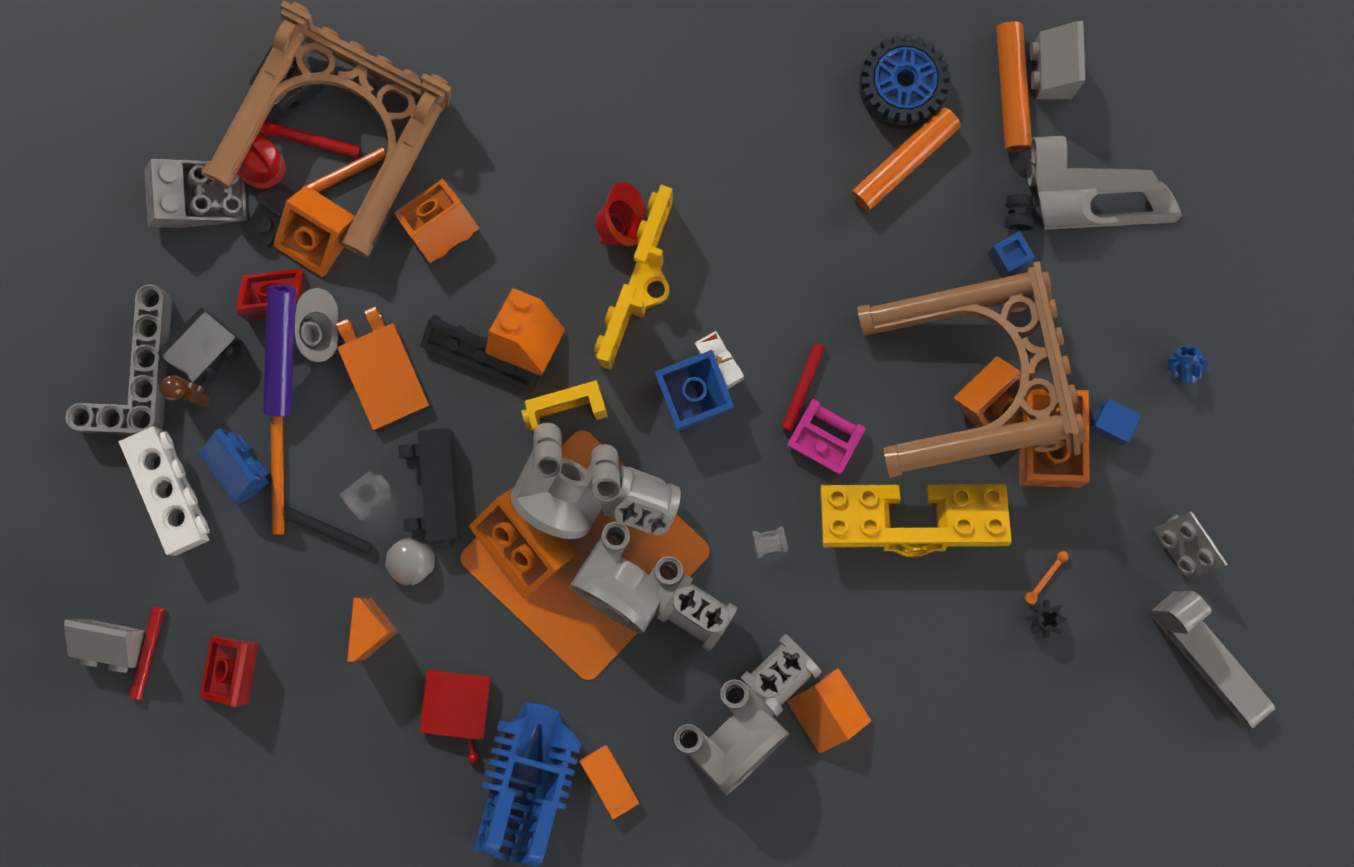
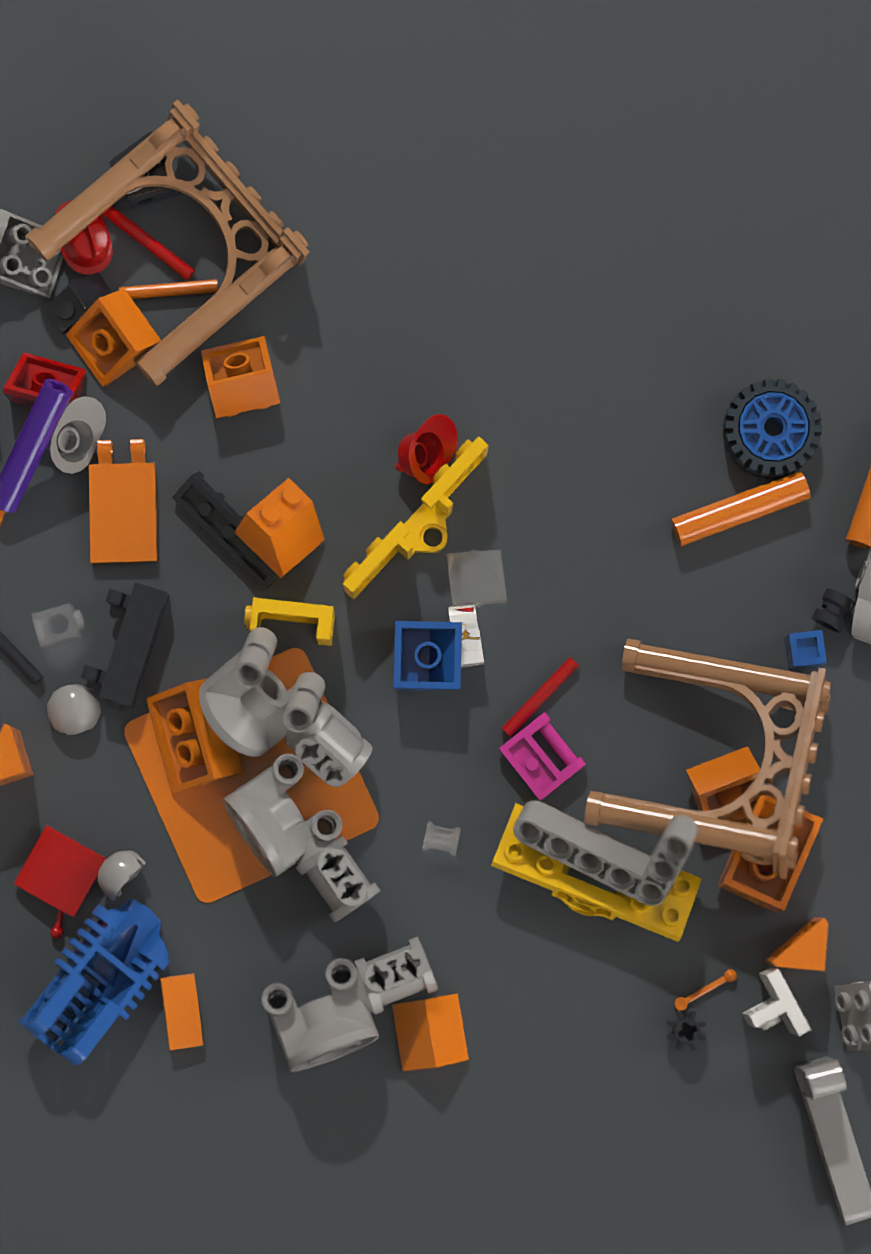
camera: 15 degrees right, 0 degrees up
(505, 684) = (118, 871): none -> light grey hair
(707, 308) = (476, 578): none -> clear piece
(922, 500) = (606, 858): none -> light grey beam
(1115, 422) = (839, 861): blue panel -> none
(1117, 565) = (781, 1003): none -> white bracket
(1118, 507) = (804, 949): none -> orange slope

